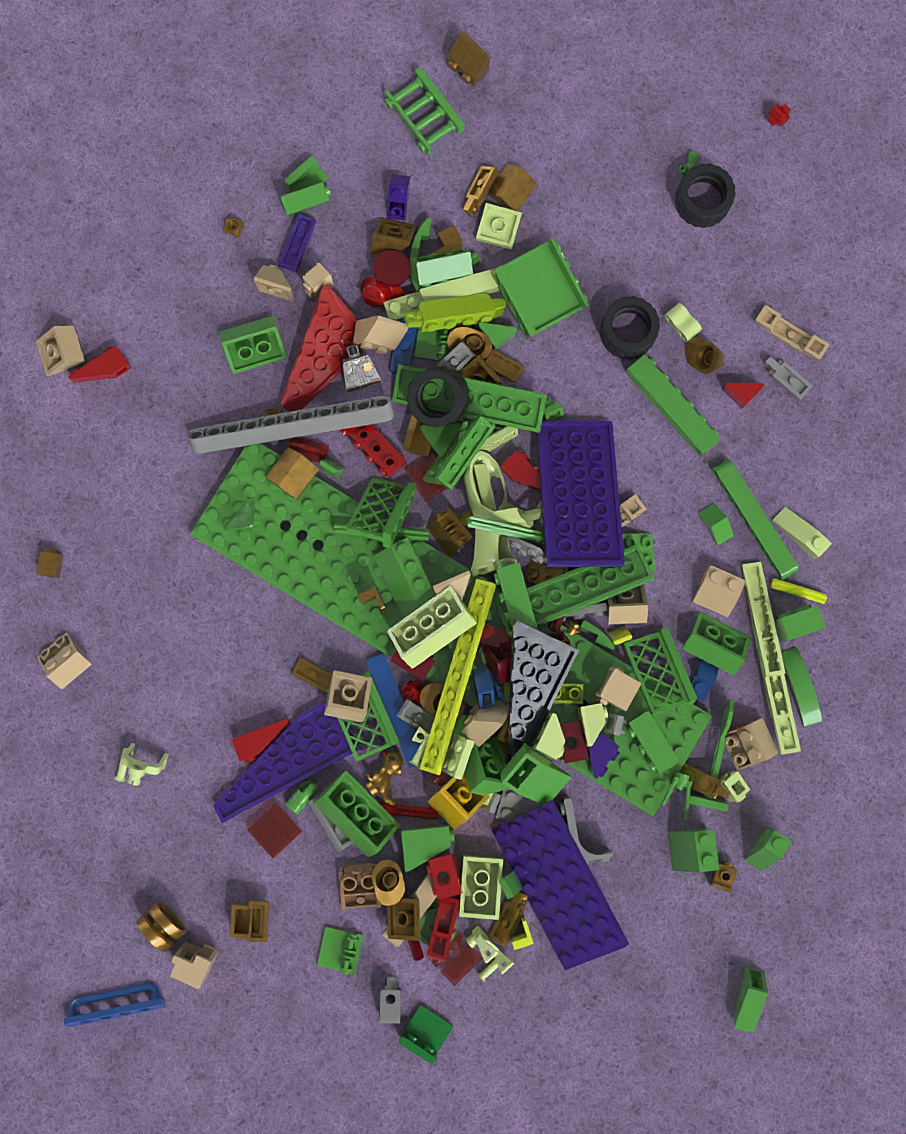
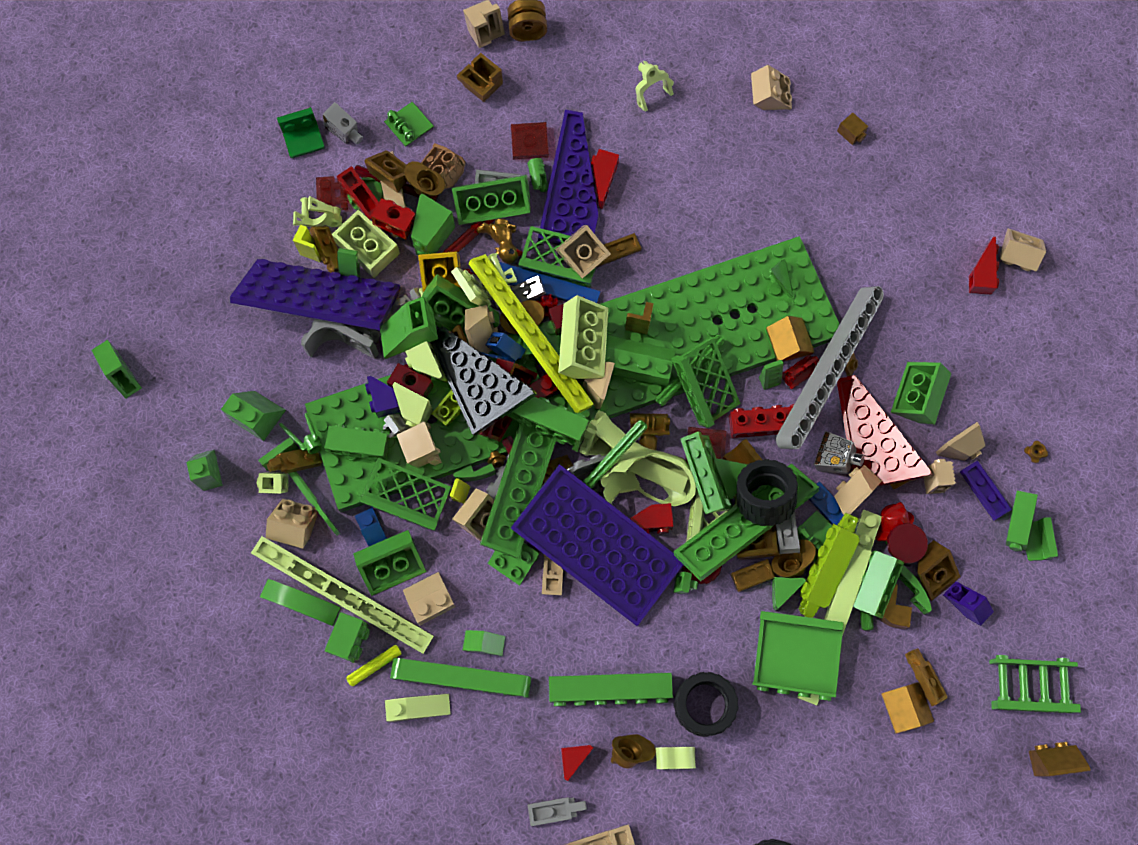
camera: 130 degrees right, 10 degrees down
(498, 226) = (880, 668): yellowish green plate -> none
(717, 880) = (212, 414): pearl gold brick -> none

